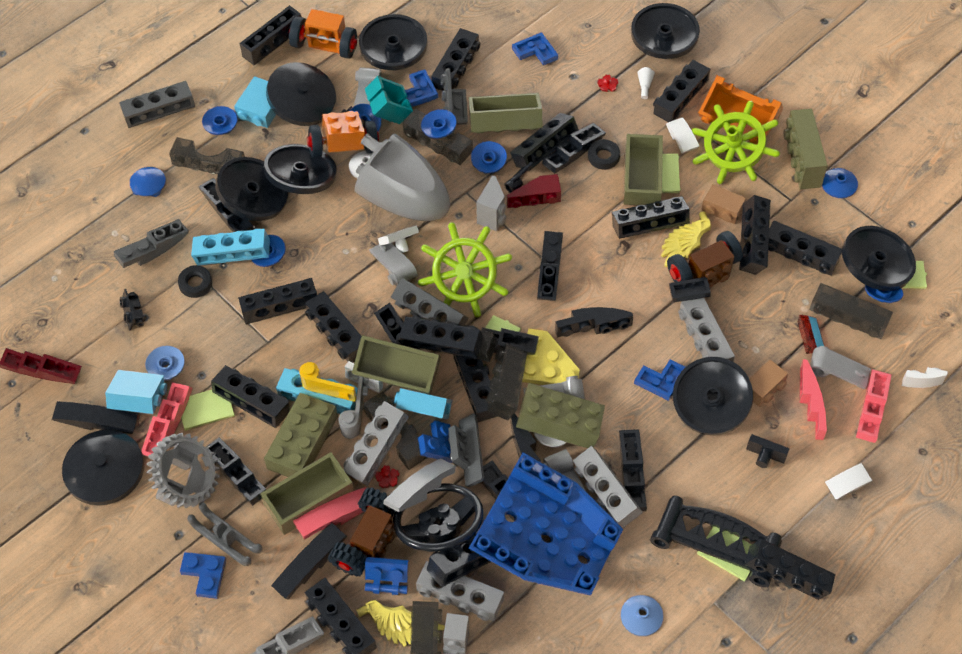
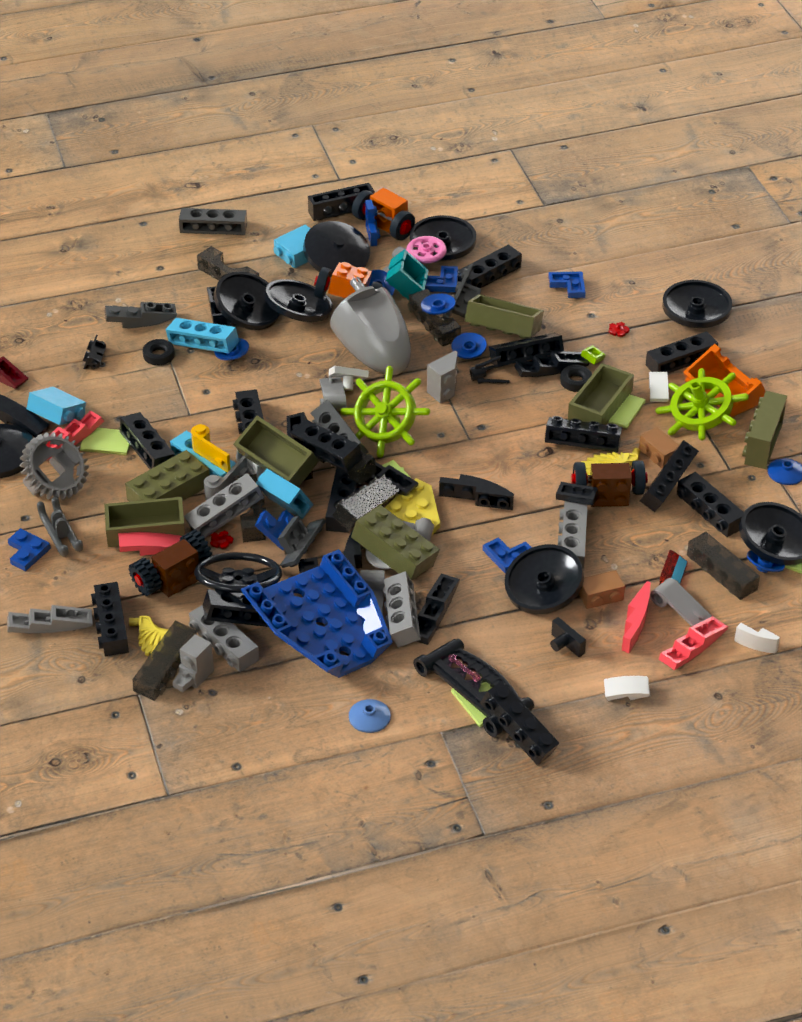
camera: 25 degrees right, 15 degrees down
(147, 181) = (168, 273): blue dish -> none
(165, 356) = (95, 396): medium blue dish -> none
(219, 120) = (256, 248): blue dish -> none
(236, 471) = (98, 488): black slope -> none
(277, 301) = (212, 385): black brick -> none
(308, 561) = (109, 570): black slope -> none
(314, 51) = (371, 222): none -> blue plate
(386, 570) = (170, 595): blue plate -> none
(389, 63) = (427, 249): none -> bright pink plate
(416, 486) = (234, 544): light grey slope -> none
(541, 190) = (494, 384): dark red slope -> none
(550, 266) = (467, 441): black slope -> none
(604, 122) = (593, 354): none -> lime tile
(645, 78) = (655, 334): white cone -> none
(717, 532) = (476, 677): none -> clear pink hinge

